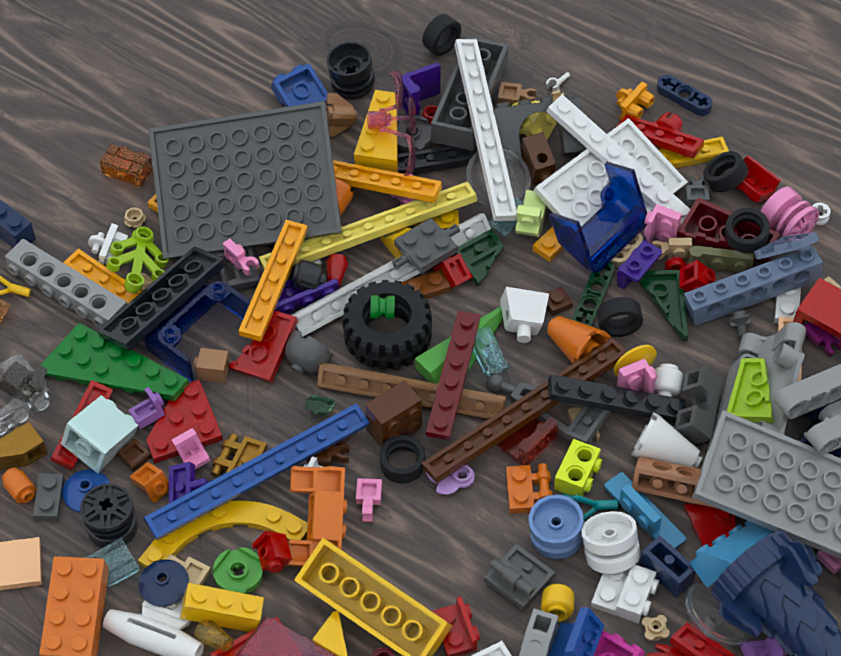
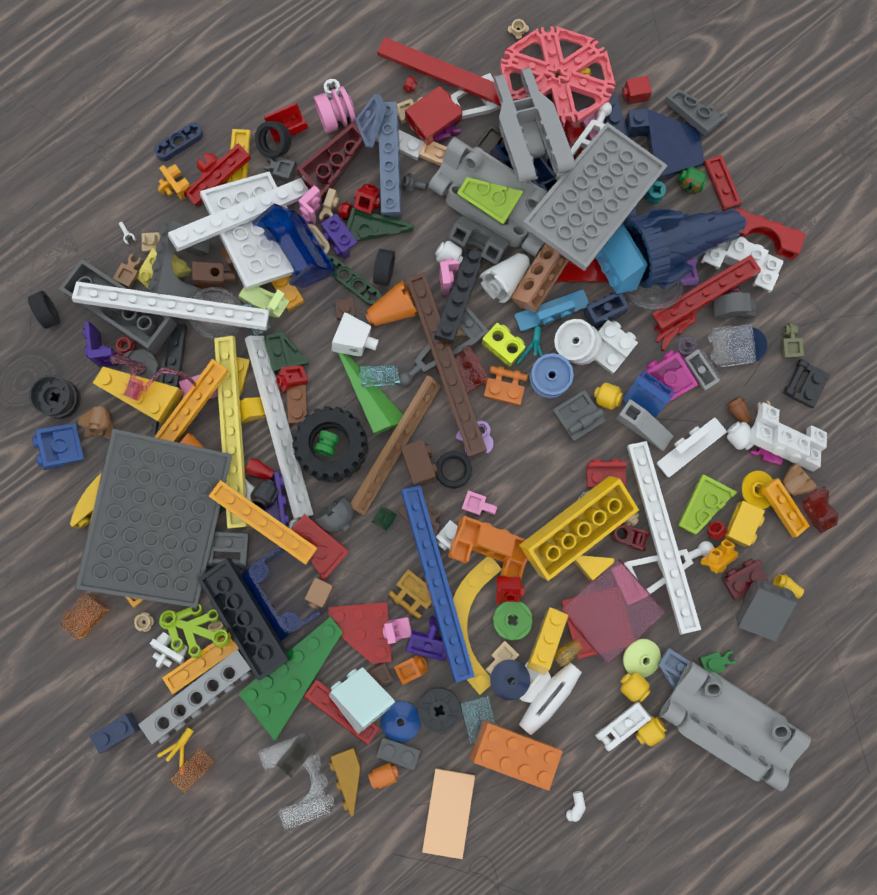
camera: 75 degrees left, 25 degrees up
(148, 410) = (346, 656): medium lavender bracket -> none
(236, 255) = (220, 545): bright pink plate -> none
(426, 245) = (268, 391): dark grey plate -> none
(453, 375) = (399, 407): dark red plate -> none
(636, 354) = (433, 270): yellow dish -> none
(655, 634) = (650, 334): tan plate -> none
(721, 258) = (352, 175): olive plate -> none
(747, 215) = (345, 129): black tyre -> none

